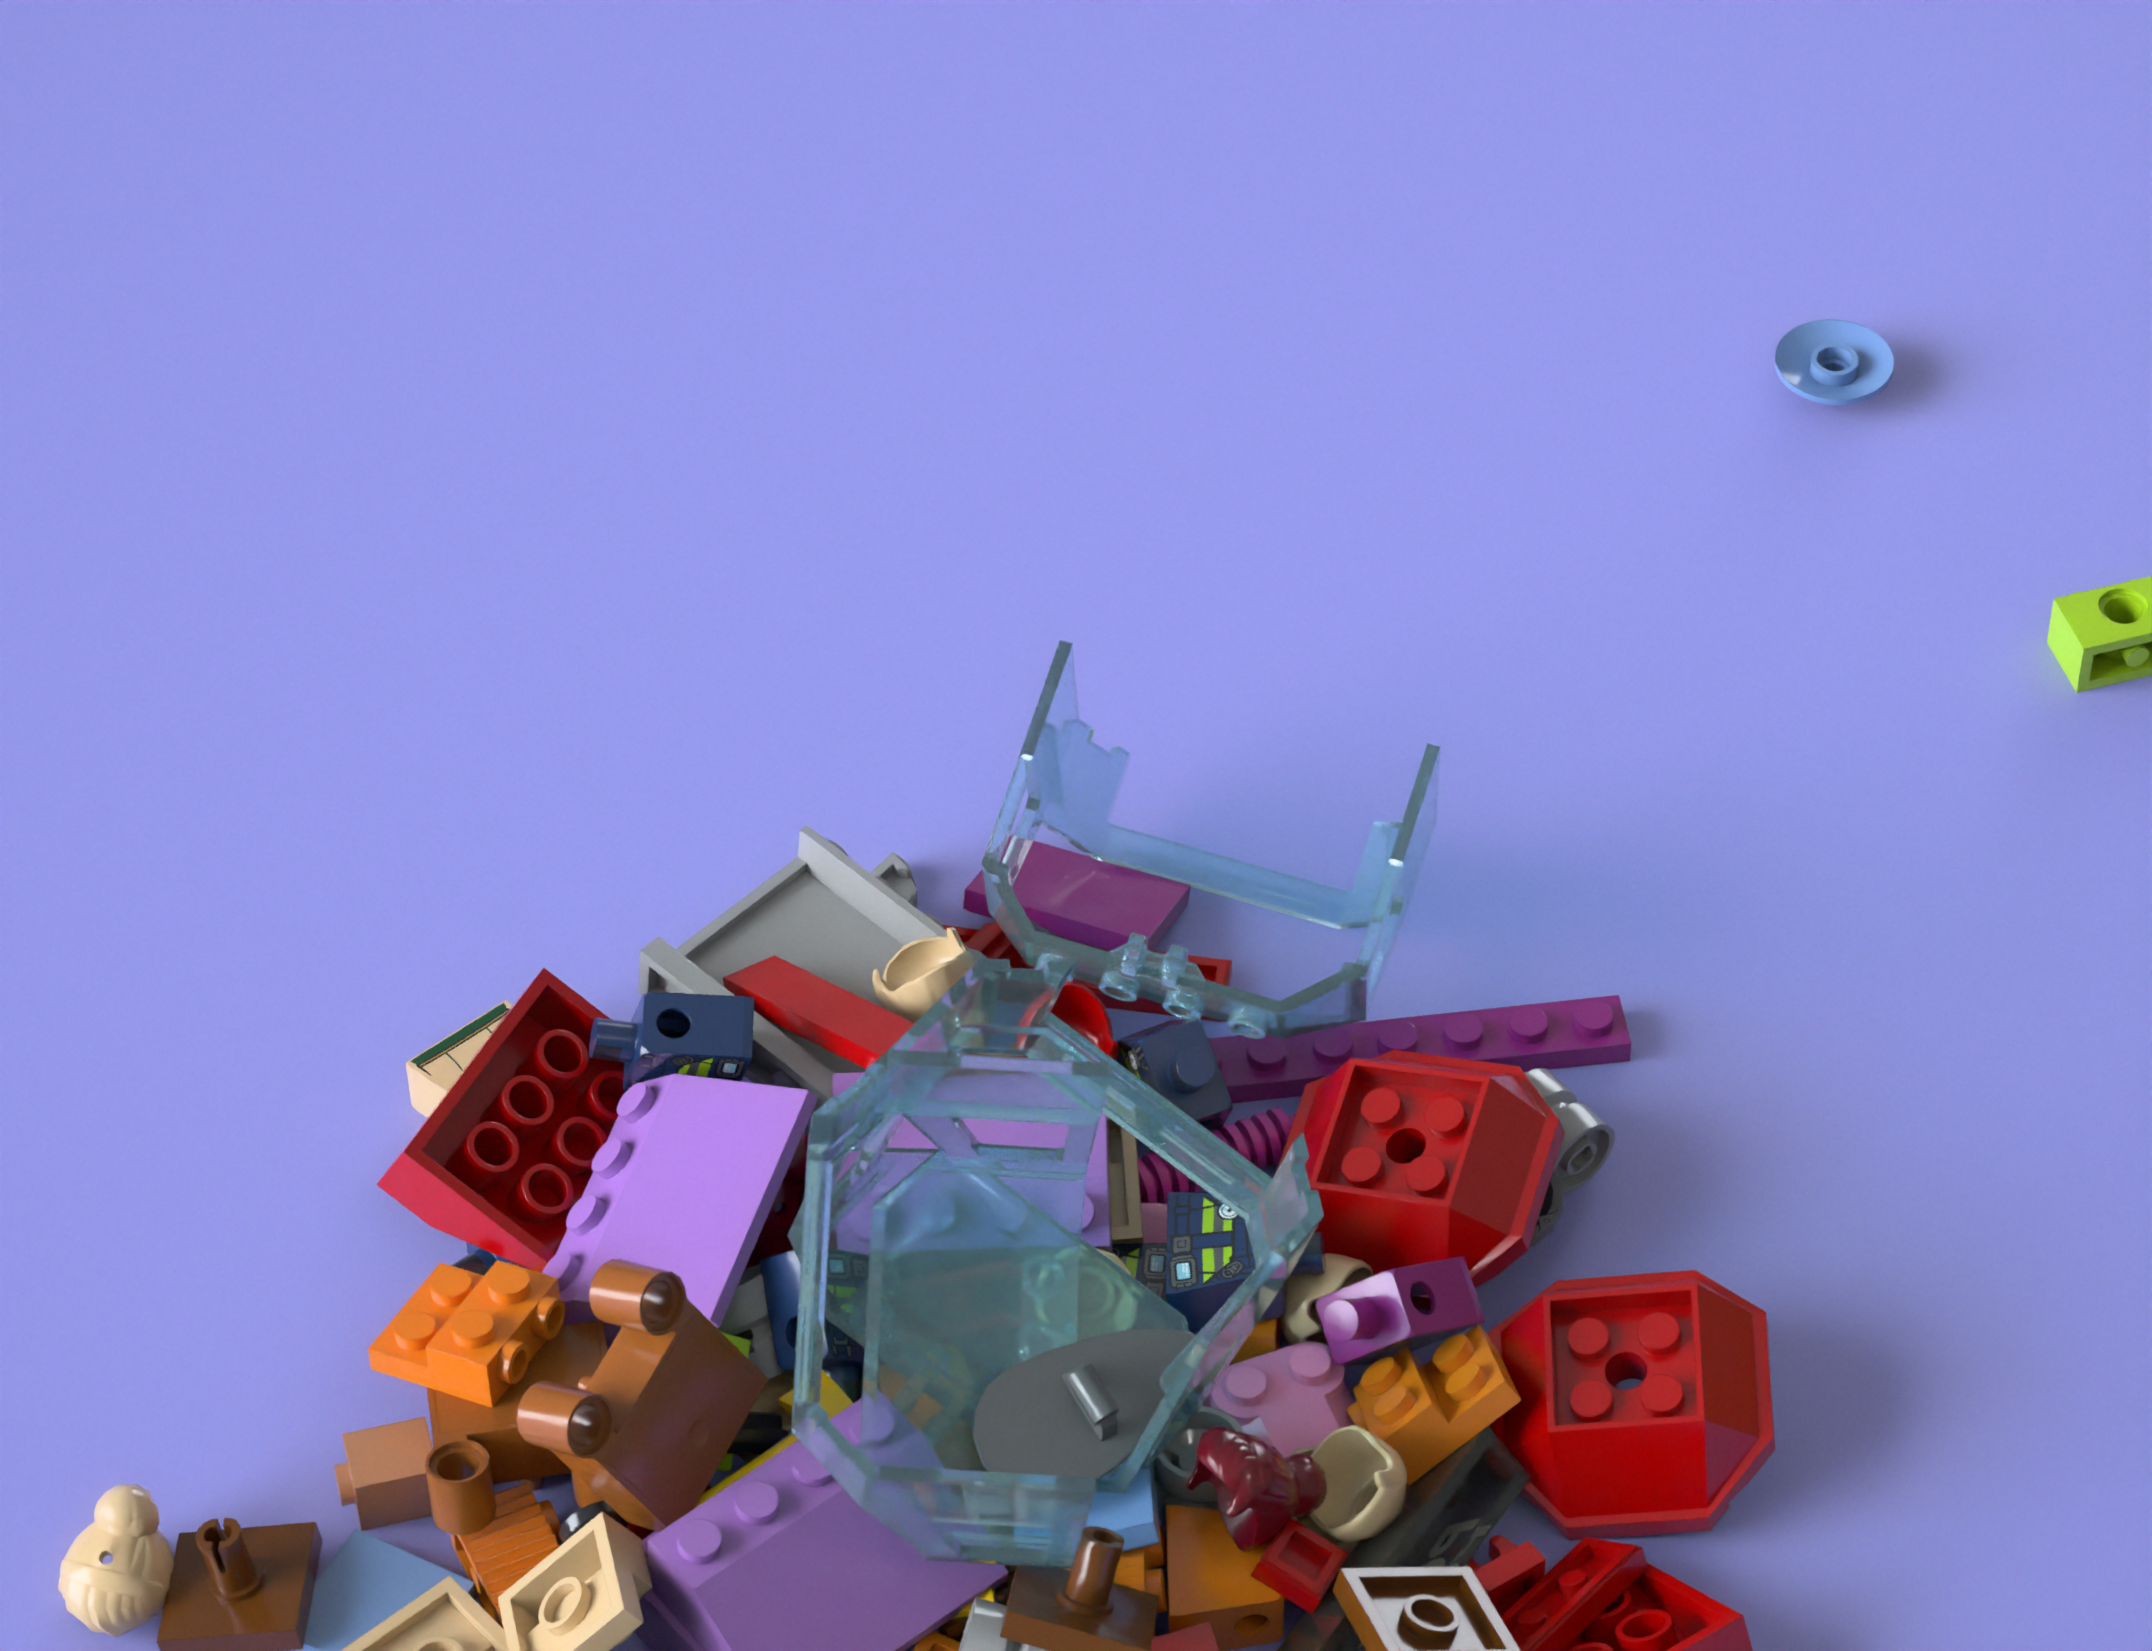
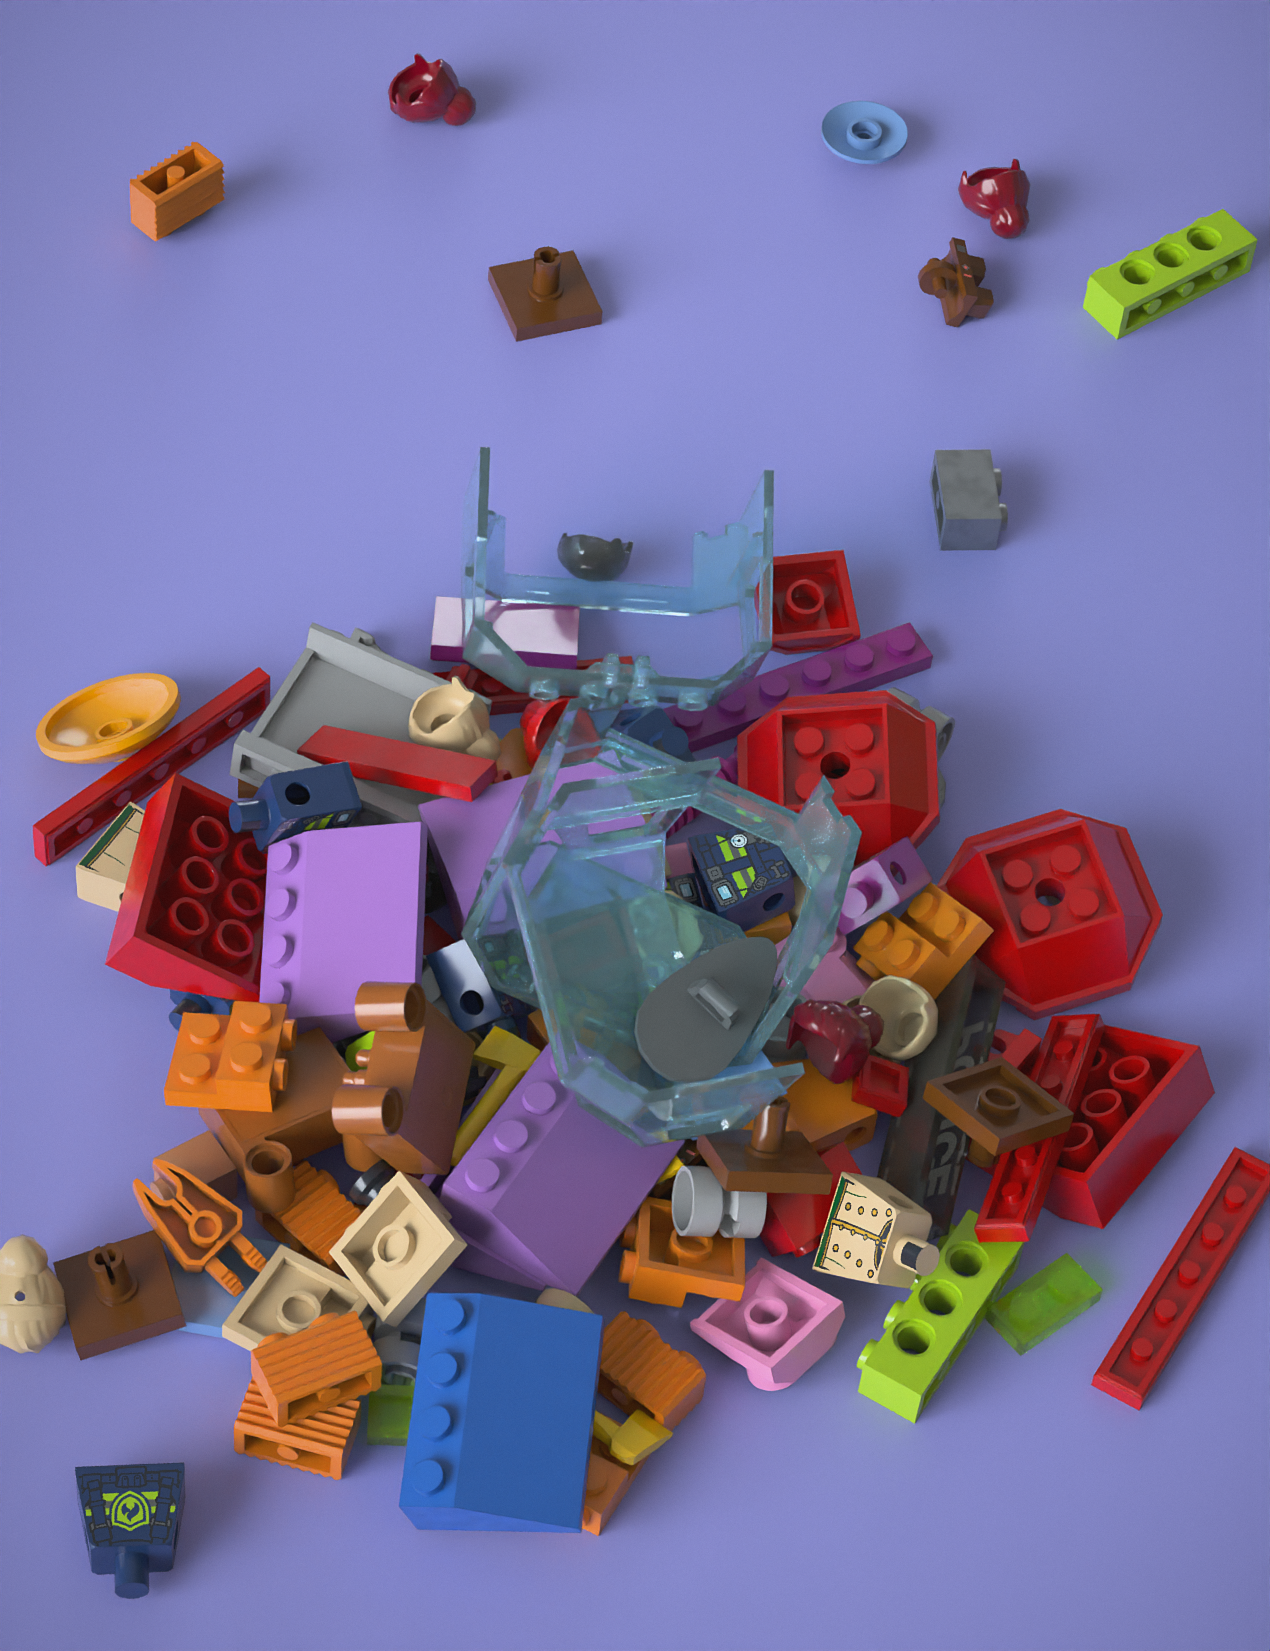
camera: 25 degrees left, 5 degrees up
(355, 1530) = (197, 1225): none -> orange hinge
(528, 899) = (109, 719): none -> light orange dish
(577, 958) = (151, 767): none -> red tile
(897, 275) = (176, 191): none -> orange brick
(1231, 827) = (594, 557): none -> clear smoke hair
(1278, 213) = (429, 93): none -> dark red piece
(1322, 489) = (545, 294): none -> reddish brown tile
(1481, 938) = (811, 603): none -> red slope
(1764, 855) = (967, 500): none -> flat silver brick
(1869, 575) = (956, 284): none -> reddish brown hips
(1981, 478) = (998, 196): none -> dark red piece

